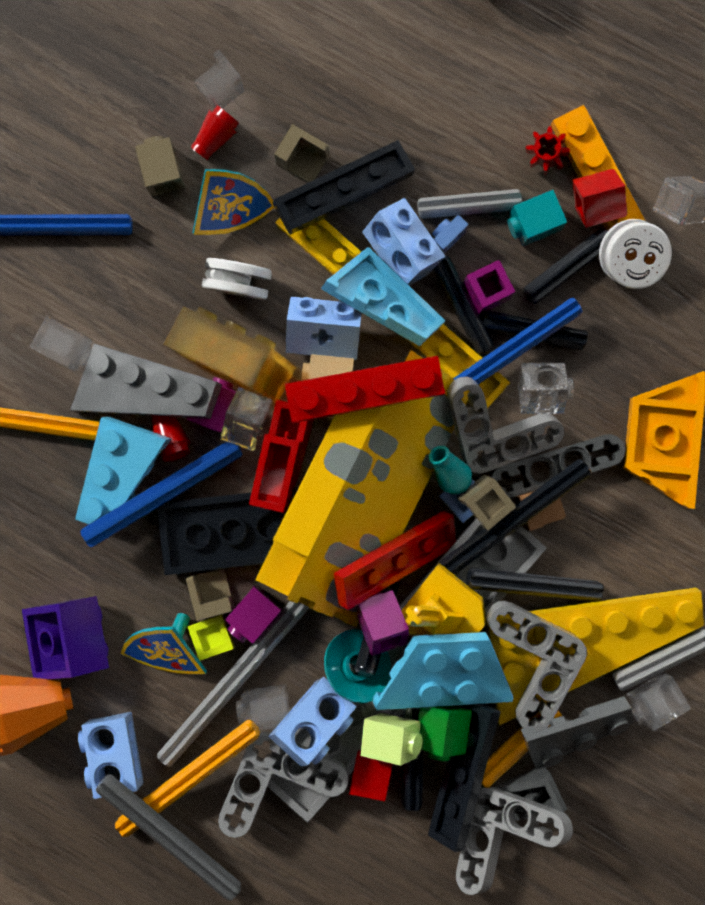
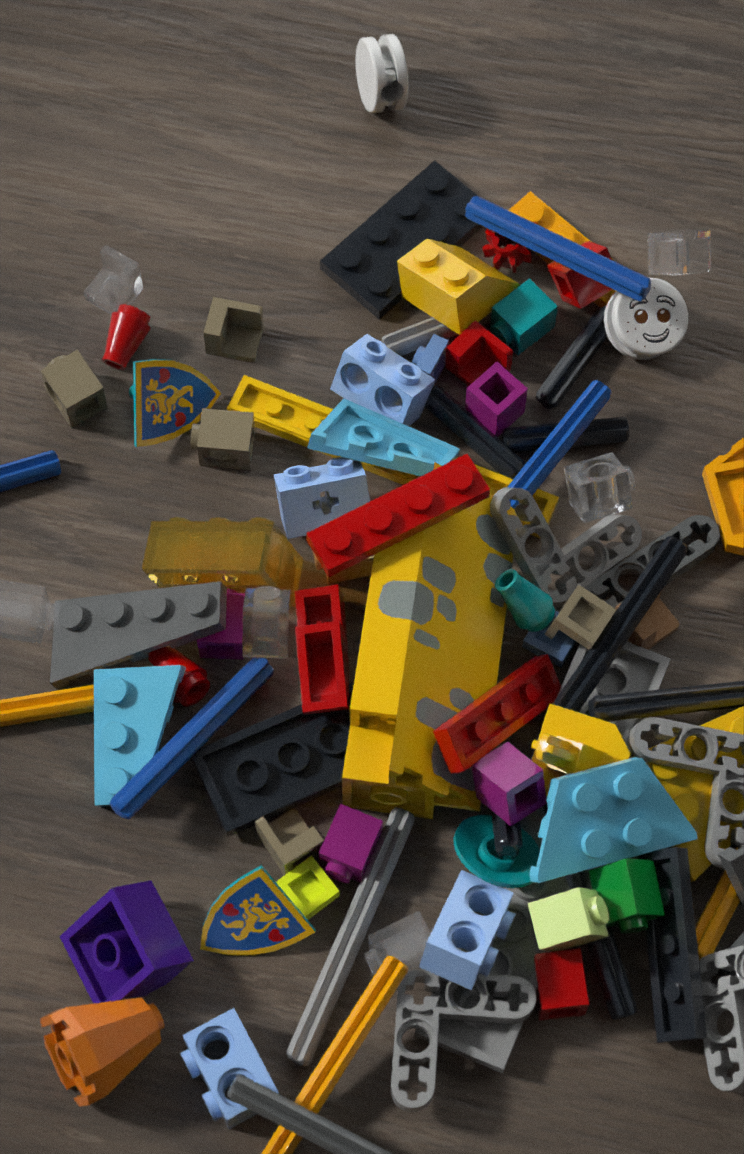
camera: 20 degrees left, 20 degrees down
(235, 278) = (204, 474): white head -> none
(264, 248) = (224, 439): none -> dark tan brick
(343, 187) = (292, 347): black plate -> none
(469, 114) = (424, 209): none -> black plate
(488, 242) = (475, 353): none -> red panel
(491, 172) = (451, 284): none -> yellow slope
(584, 175) = (558, 248): none -> blue axle

